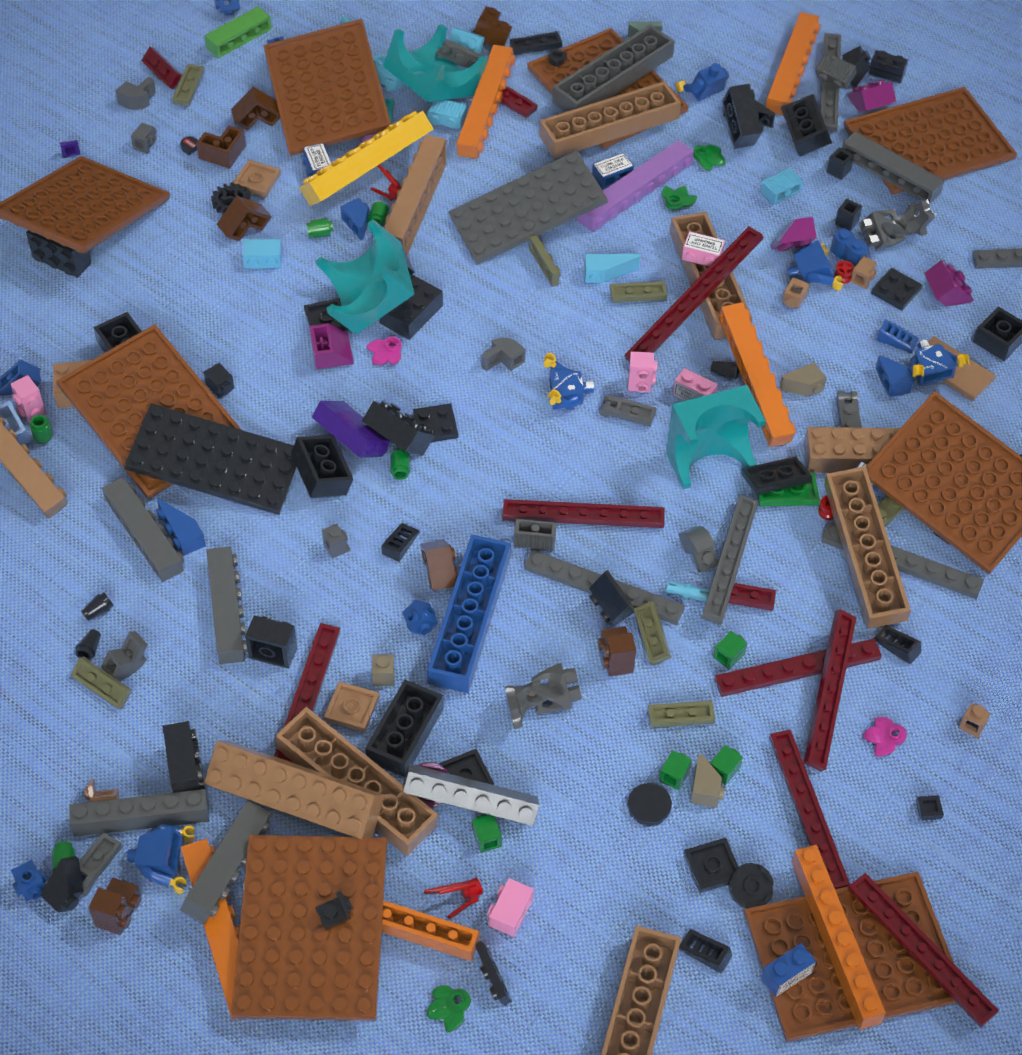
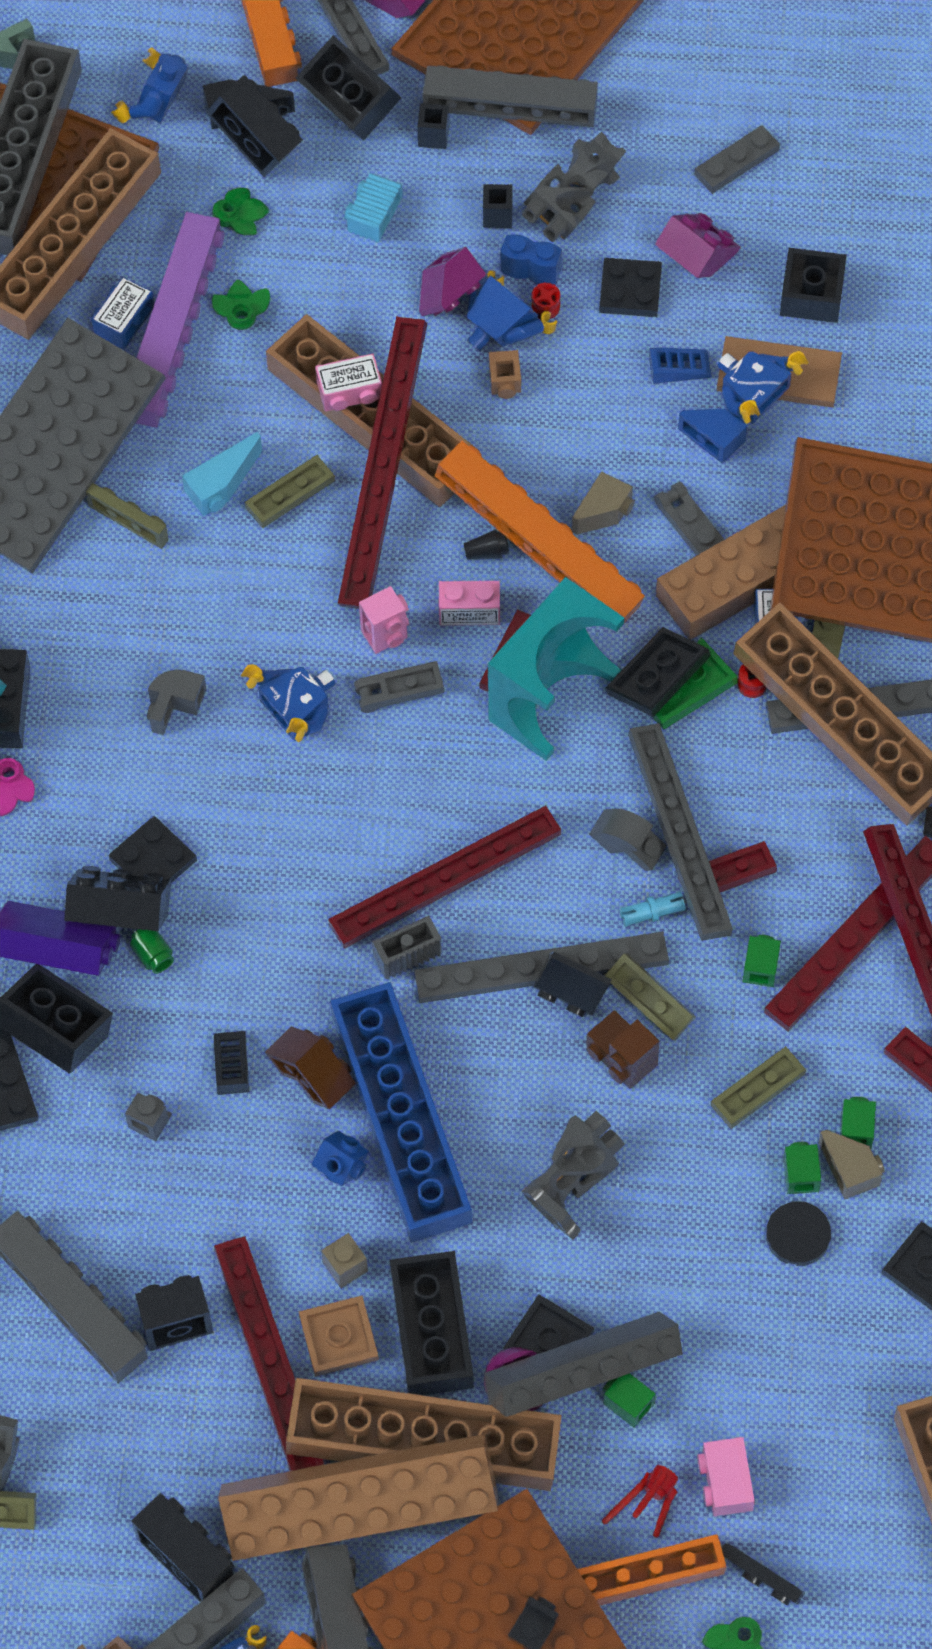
camera: 30 degrees left, 10 degrees up
(864, 272) = (574, 287): medium nougat brick -> none

